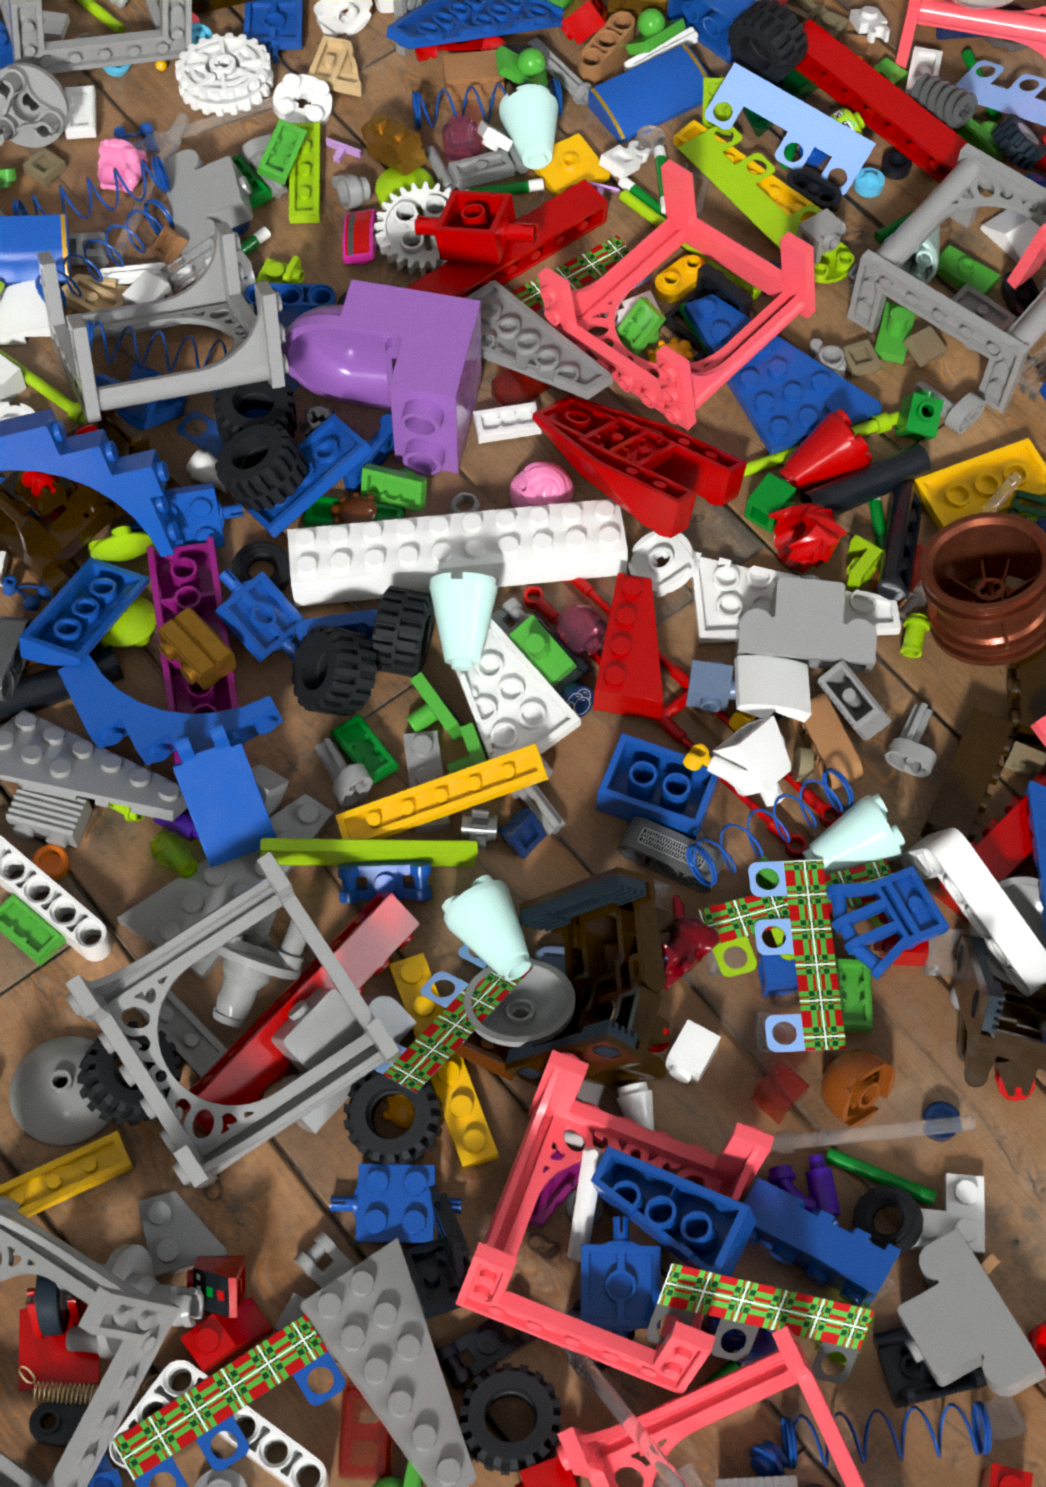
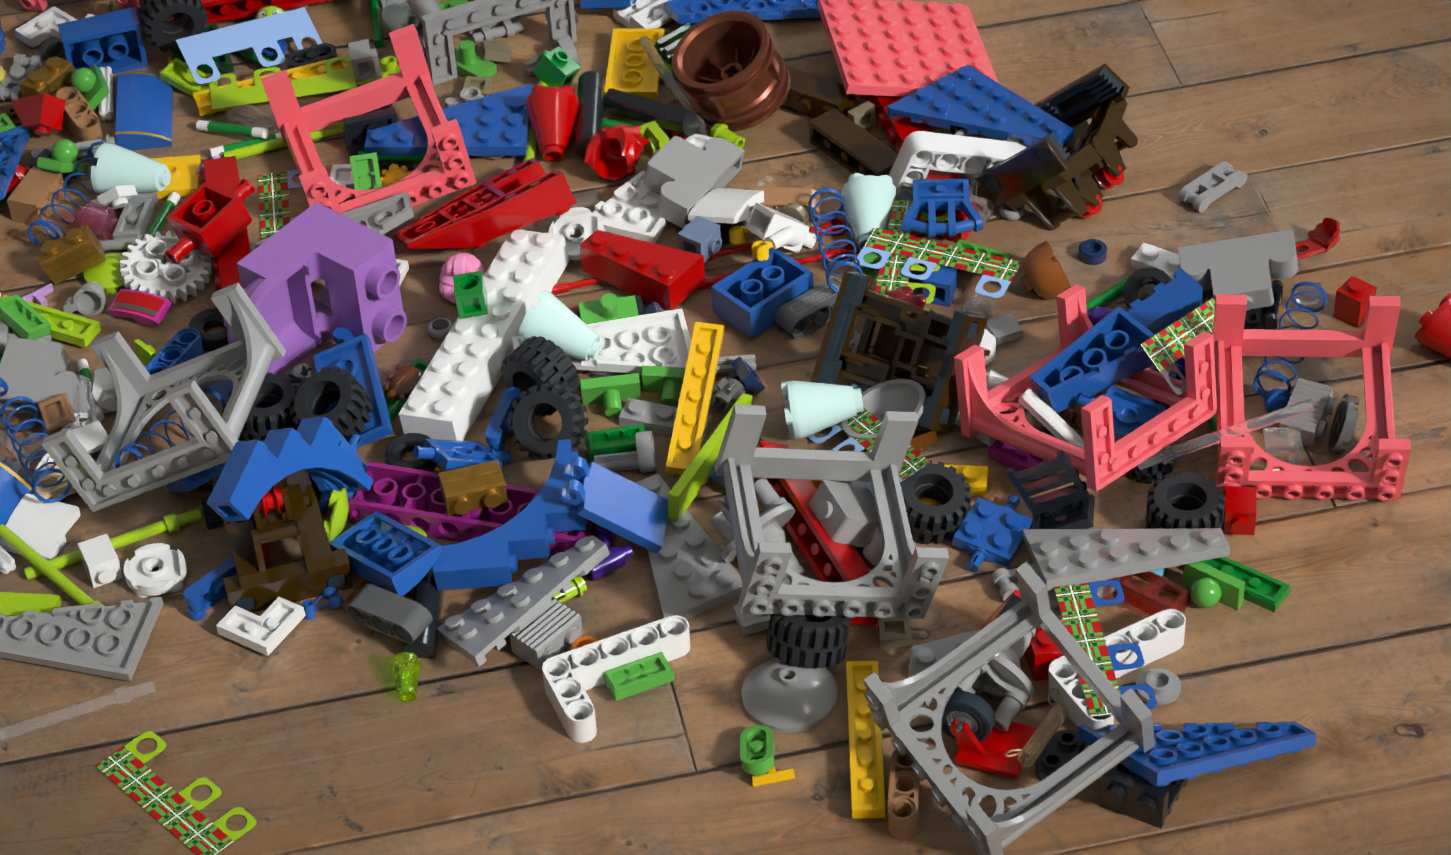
camera: 60 degrees left, 20 degrees down
(170, 851) = (635, 568): clear neon green cone -> none
(394, 487) = (401, 350): bright green tile -> none
(472, 508) = (470, 294): none -> green brick
(487, 1347) = (1121, 514): black plate -> none
(582, 629) = (605, 281): clear pink head -> none
(623, 161) = (196, 142): white plate -> none
(650, 137) = (184, 127): clear tile -> none
(682, 274) = (329, 149): yellow plate -> none
(745, 1073) = (1004, 328): none -> light grey tile
(768, 497) = (570, 164): green brick -> none
(779, 1091) = (1030, 310): clear red panel -> none
(786, 1142) = (1087, 271): clear bar -> none
(854, 700) = (762, 172): light grey brick -> none
(869, 182) = (327, 31): medium azure tile -> none
(895, 165) = (322, 13): black tile -> none
(906, 752) = (815, 172): light grey piece -> none

